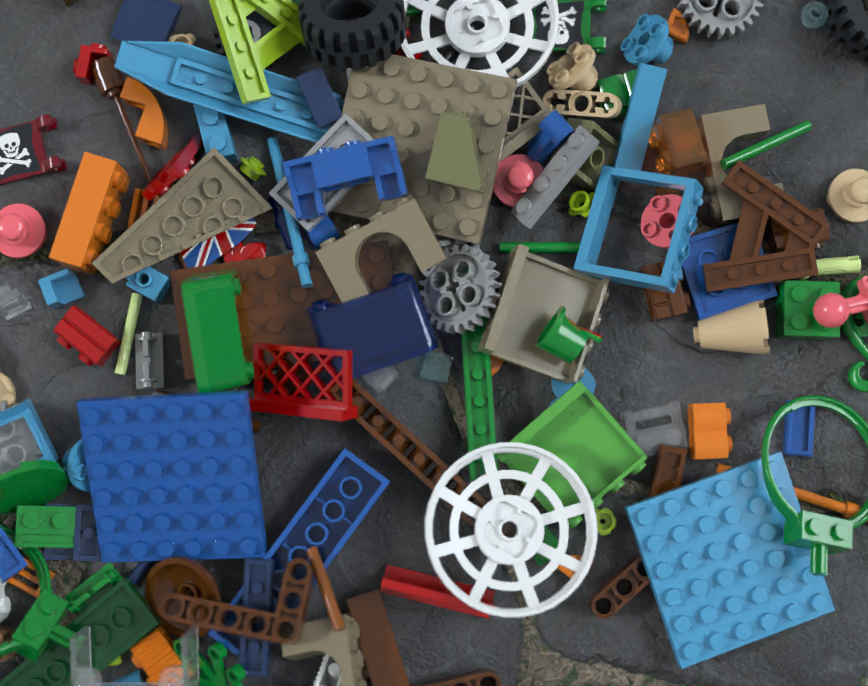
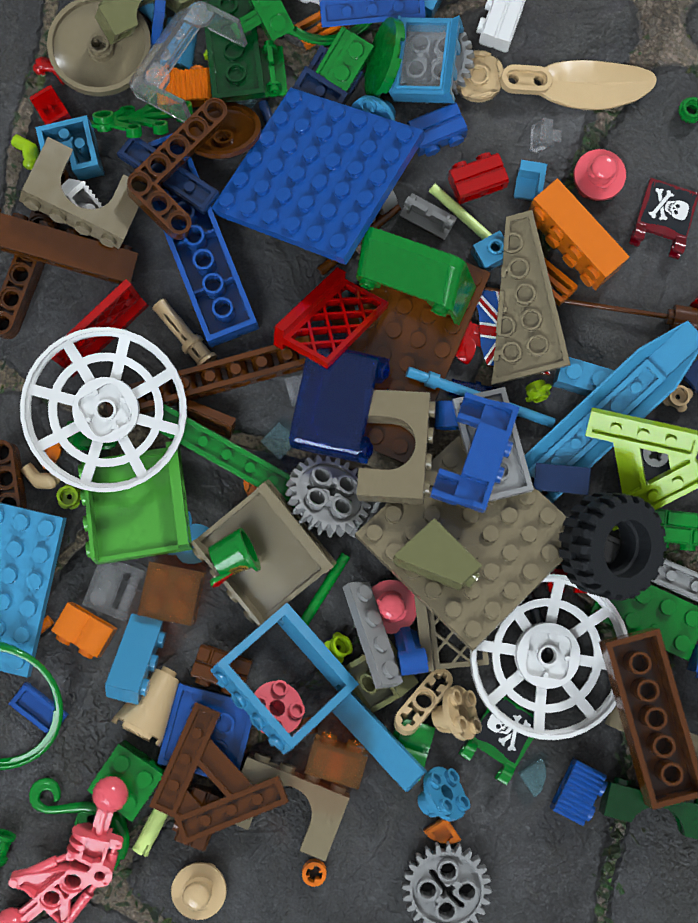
camera: 130 degrees right, 0 degrees up
(59, 398) = (440, 129): none -> blue brick
(153, 123) = (625, 334): orange brick -> none
(173, 170) = (572, 322): red wing -> none
(325, 588) = (153, 237): dark orange bar -> none
(398, 499) = (191, 342): none -> tan pin
(455, 436) = (211, 419): none -> reddish brown tile
(605, 559) = (39, 480): none -> tan arm
(628, 373) = (171, 593): none -> clear orange brick
(667, 469) = (74, 575): reddish brown plate -> none
(705, 365) = (135, 659): none -> dark azure brick
(766, 144) = (289, 840): green bar -> none
(782, 104) = (318, 880): none -> orange bush

